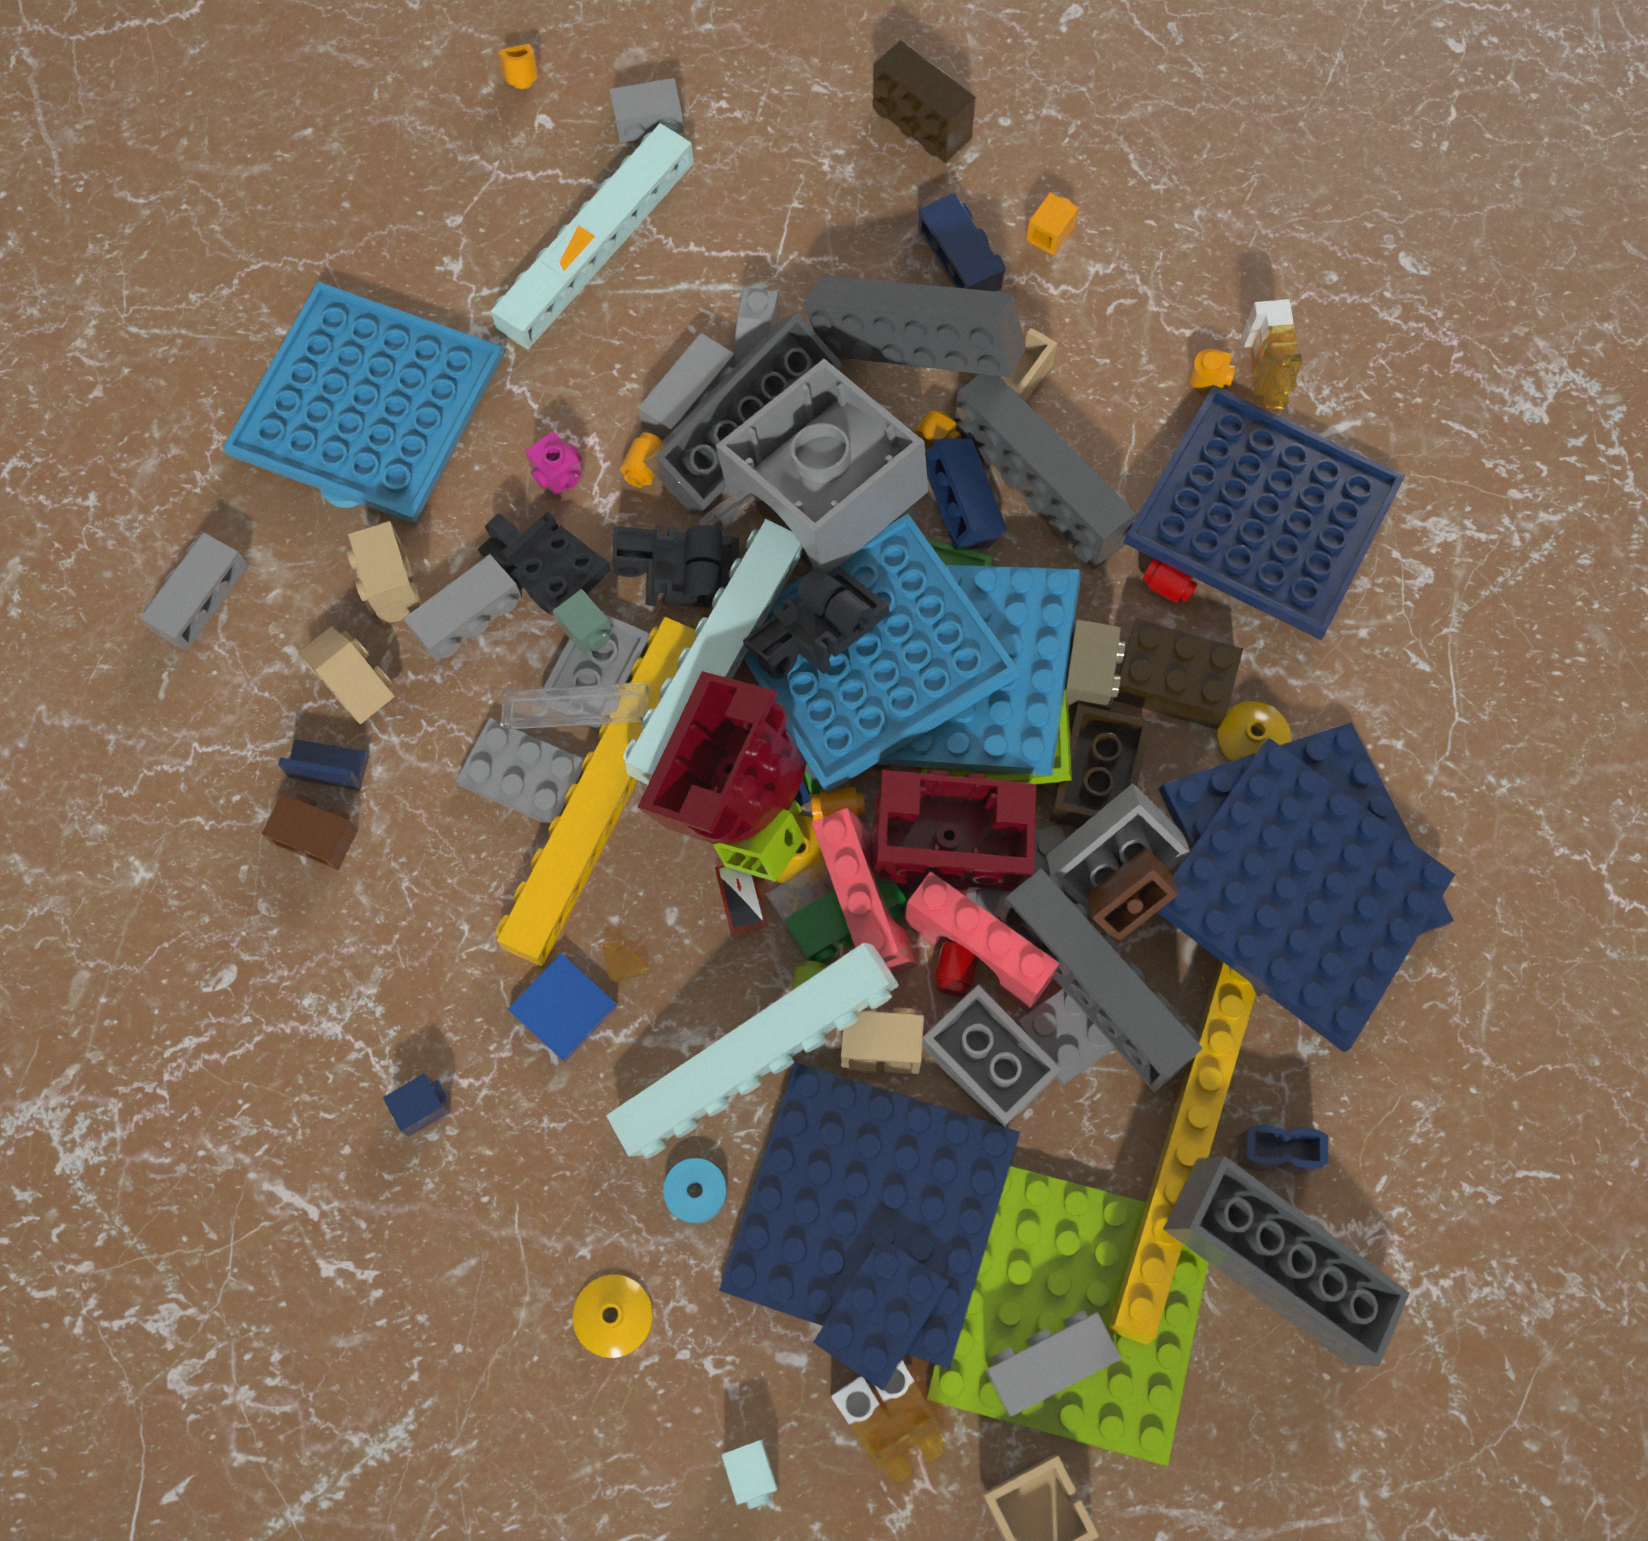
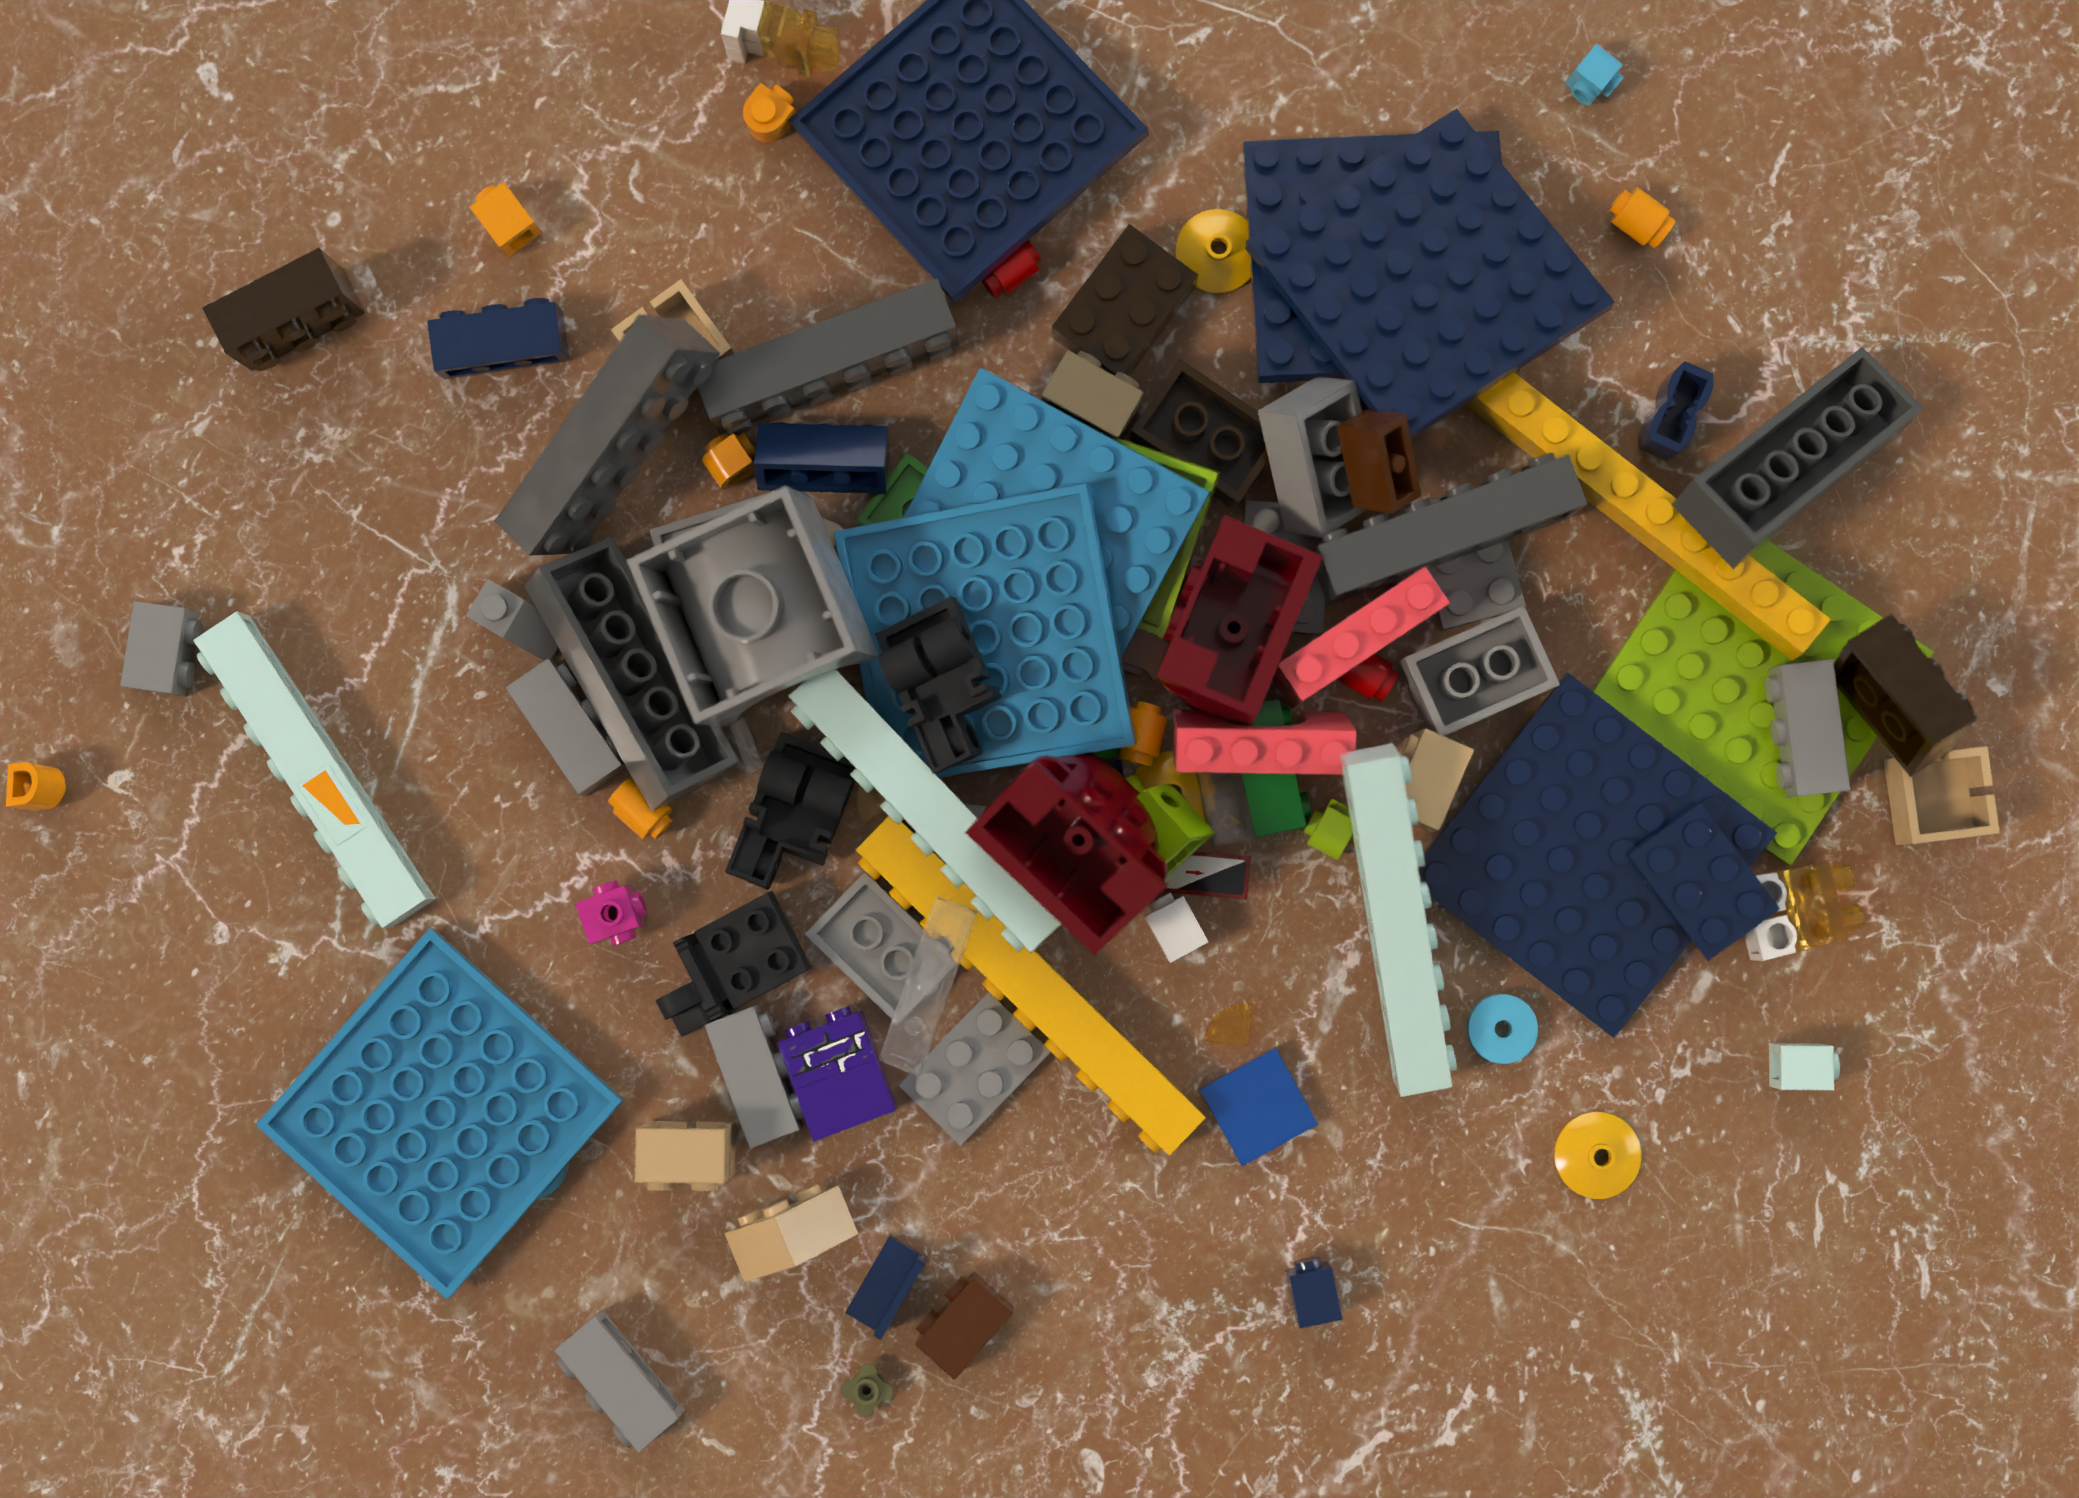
camera: 65 degrees left, 15 degrees up
(247, 779) = (867, 1402): none -> olive plate
(483, 665) = (836, 1073): none -> dark purple brick
(583, 622) = (832, 943): sand green brick -> none
(688, 886) = (1175, 927): none -> white brick
(1114, 1430) = (1902, 694): none -> dark brown brick
(1436, 1065) = (1641, 217): none -> light orange brick
(1537, 983) = (1595, 75): none -> medium azure plate

